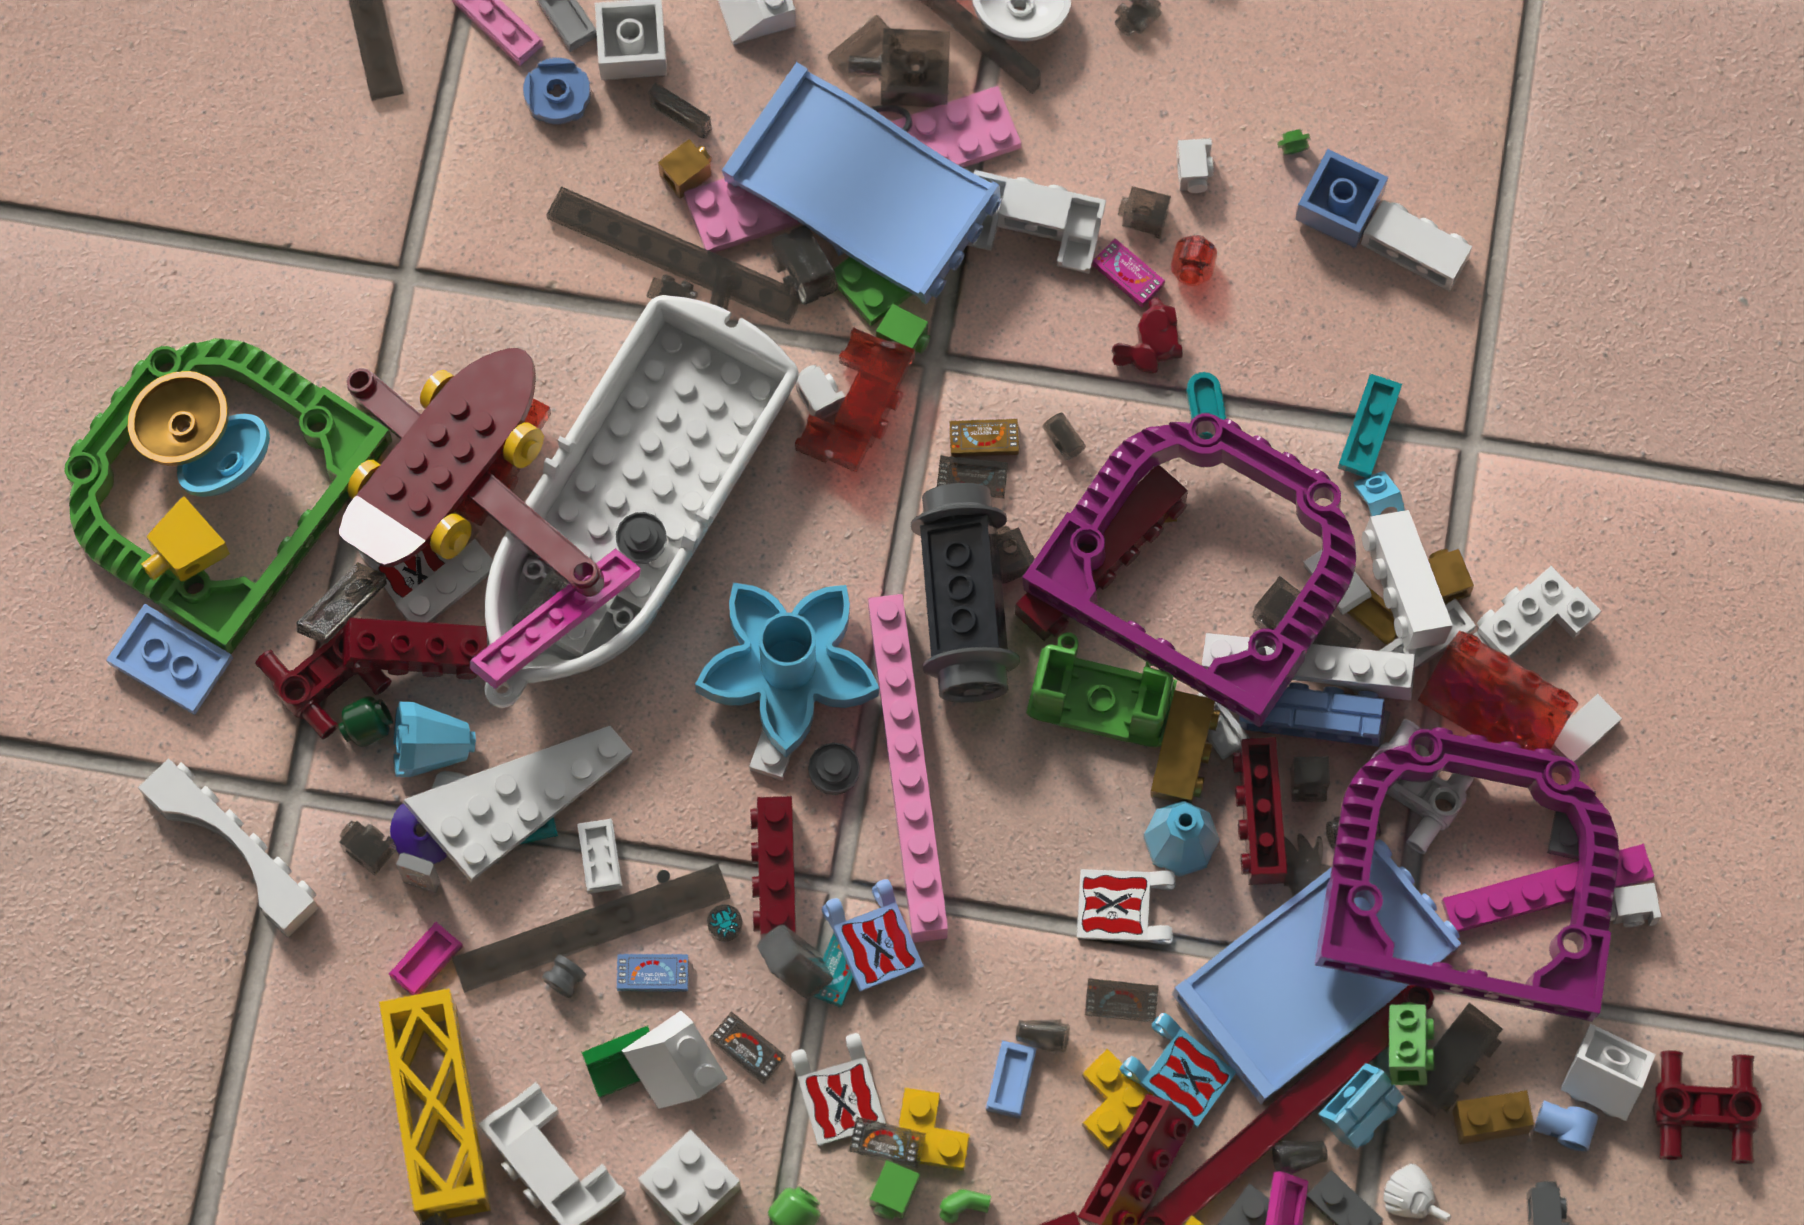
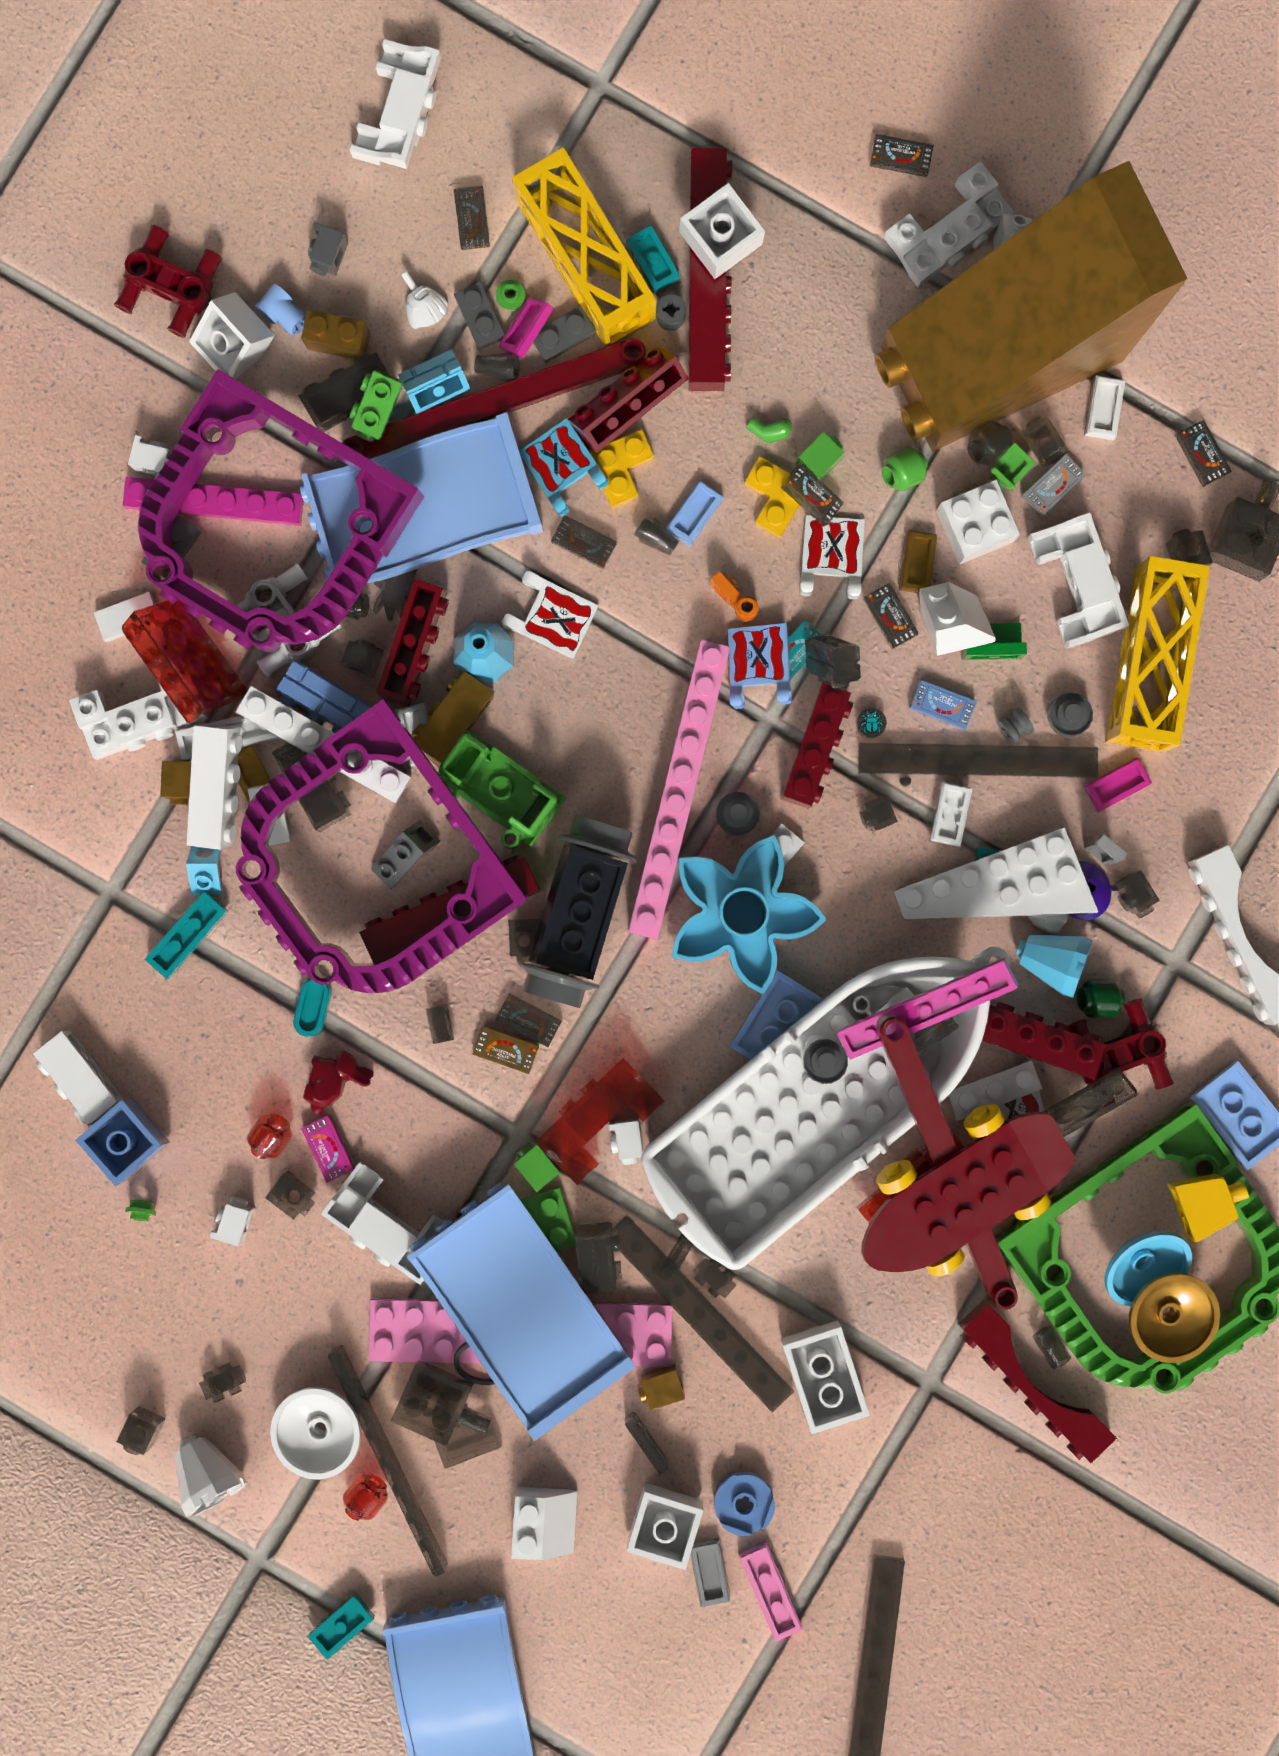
camera: 155 degrees left, 15 degrees up
(235, 287) = (1079, 1425): none -> dark red arch
(291, 354) = (1051, 1347): none -> clear smoke piece
(507, 1012) = (1070, 715): none -> dark grey plate
(521, 236) = (825, 1377): none -> white brick
(680, 824) = (877, 814): none -> clear smoke plate
(708, 579) = (773, 1014): none -> light blue wing
(739, 1120) = (917, 561): none -> pearl gold tile
(940, 1003) = (727, 590): none -> orange plate
(1174, 594) = (404, 853): none -> dark grey bracket

